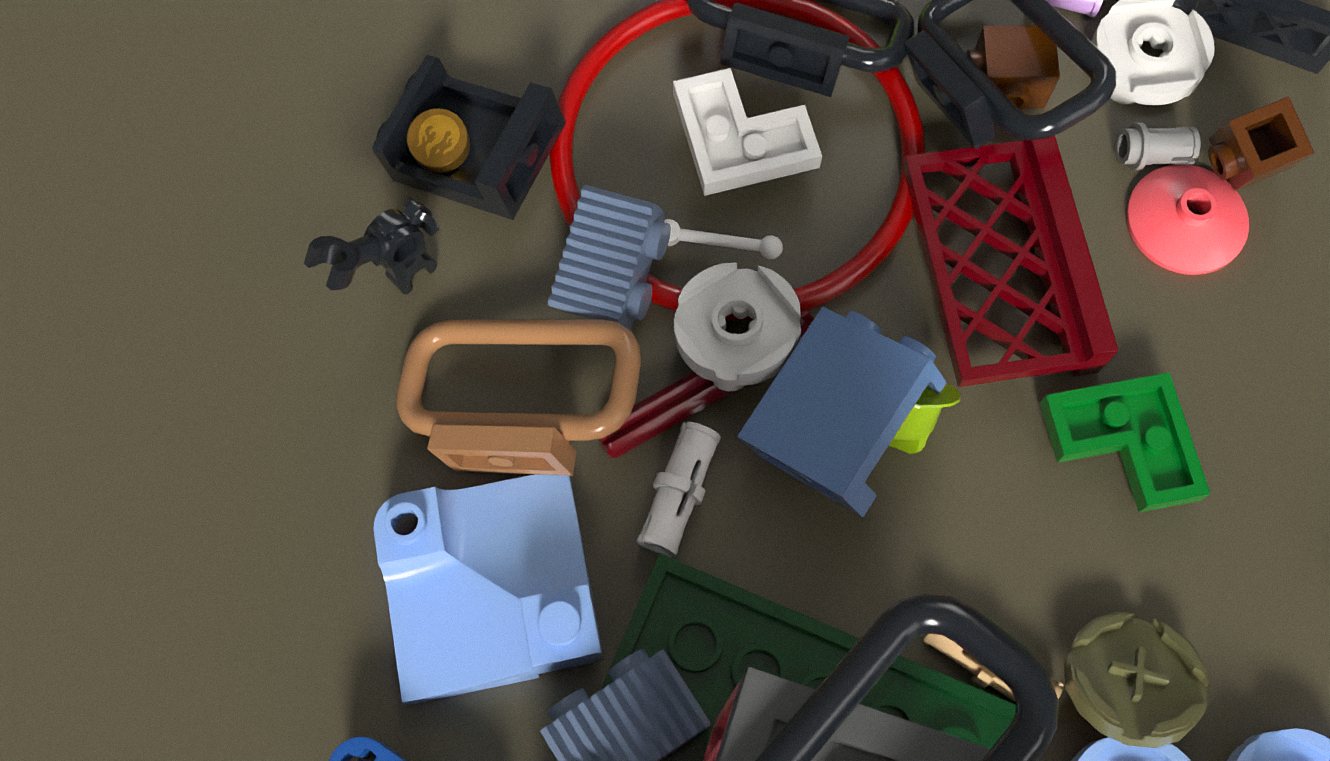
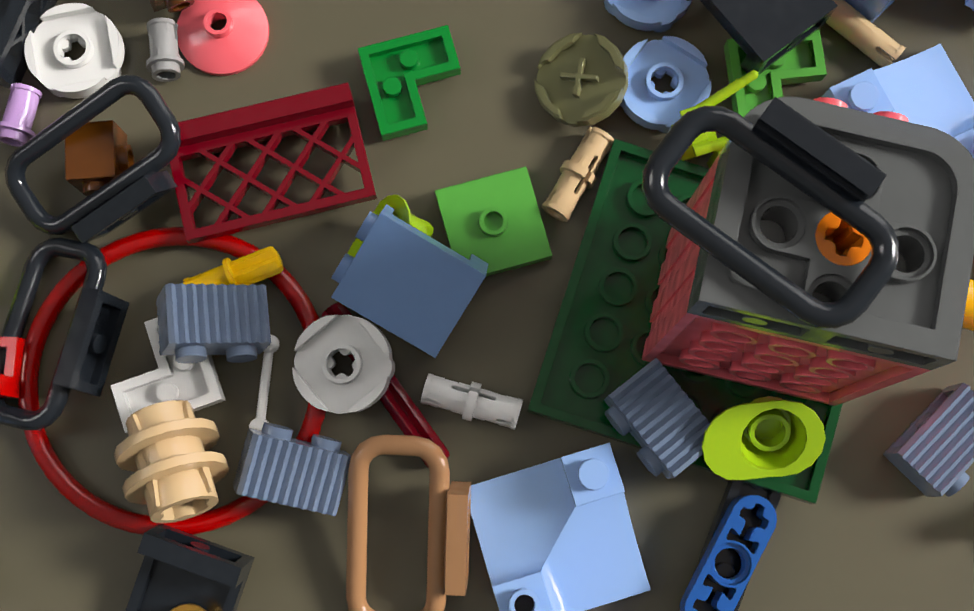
camera: 100 degrees left, 10 degrees up
(631, 119) = (171, 461): none -> tan piece
(798, 171) = (213, 321): none -> sand blue brick
(858, 206) = (243, 270): none -> yellow axle
(924, 538) = (495, 221): none -> bright green plate

